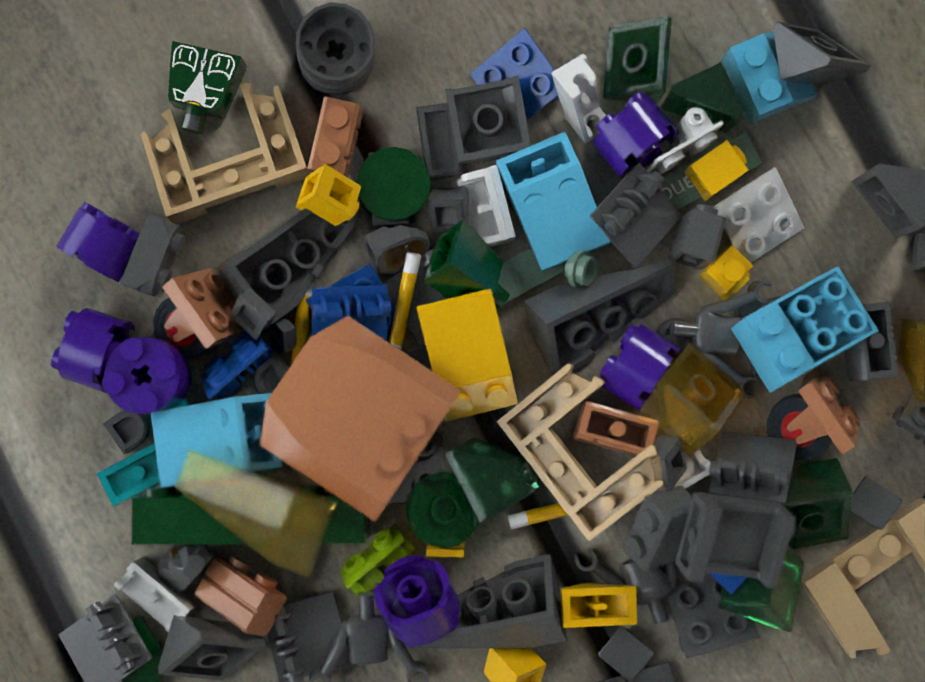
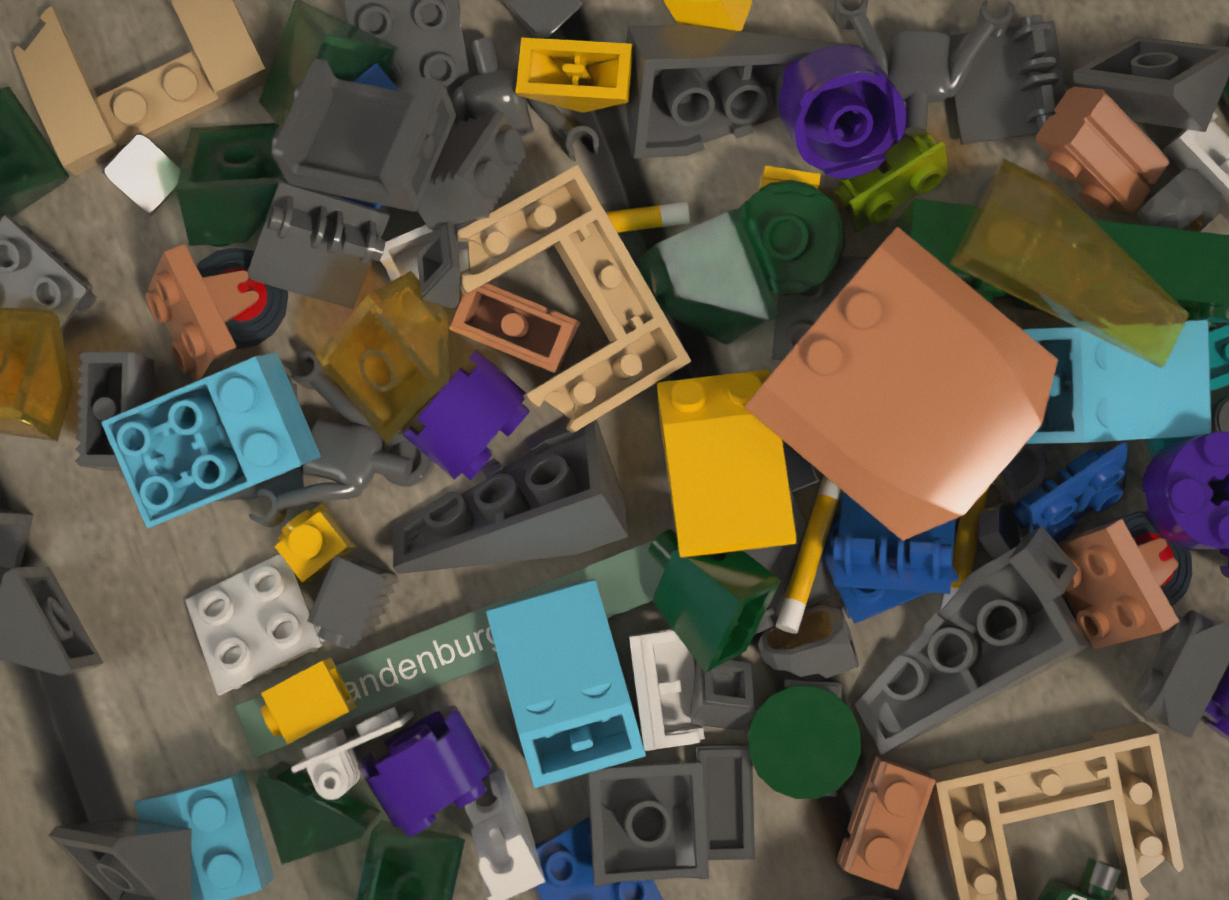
camera: 175 degrees left, 0 degrees up
(329, 195) = (906, 733): yellow brick -> none
(581, 269) = (536, 573): sand green plate -> none
(636, 214) = (440, 647): dark grey hinge -> none

